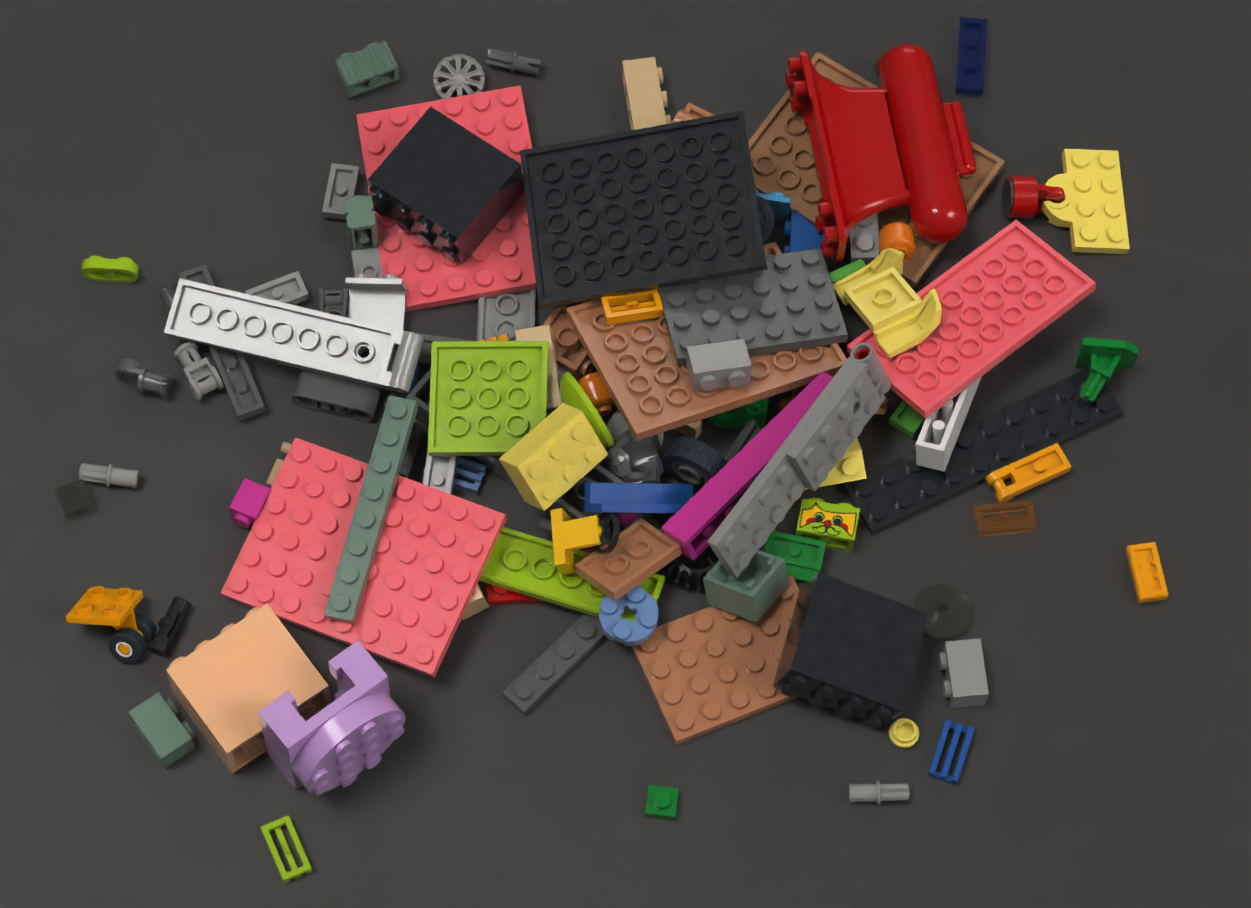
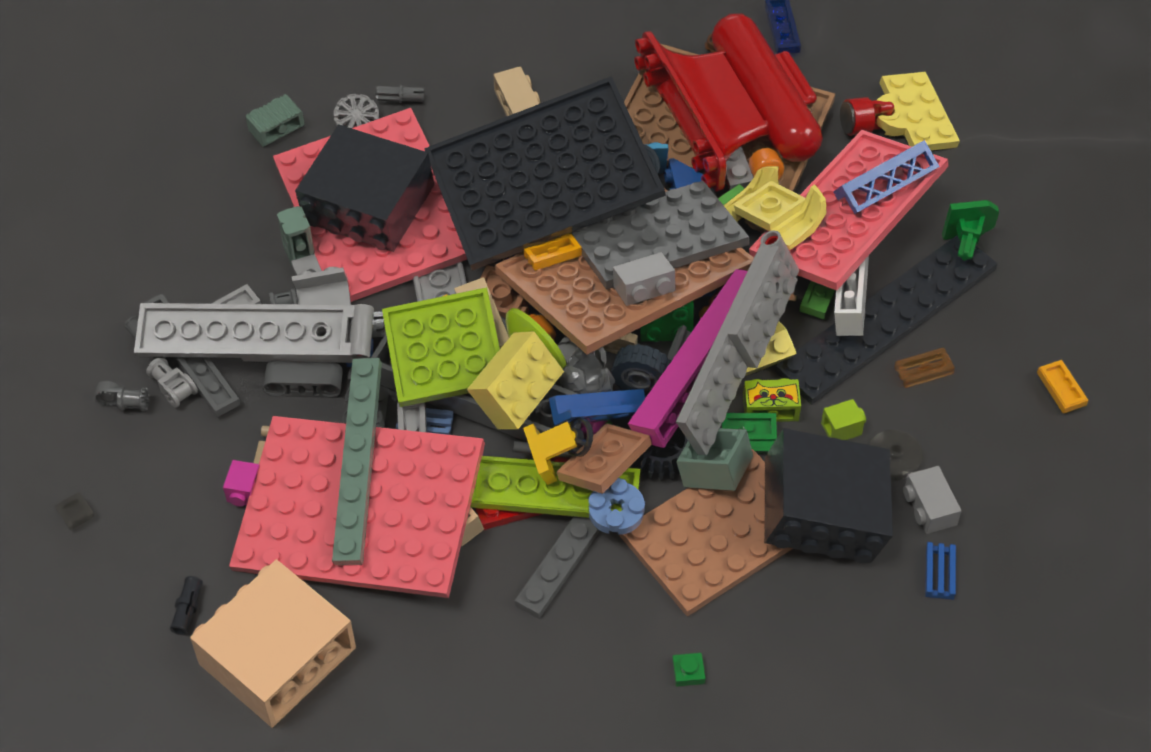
camera: 10 degrees left, 10 degrees down
(108, 475) = (104, 484): light grey axle -> none
(109, 270) = (75, 314): lime plate -> none
(116, 609) = (133, 597): light orange plate -> none
(162, 730) = (196, 699): sand green brick -> none
(340, 186) = (269, 207): light grey plate -> none
(341, 736) = (372, 664): lavender piece -> none
(878, 792) = (885, 618): light grey axle -> none
(897, 564) = (843, 420): none -> lime brick
(903, 733) = (893, 562): light yellow plate -> none
(1018, 282) = (881, 170): none -> fence
(1029, 472) = (933, 326): light orange plate -> none

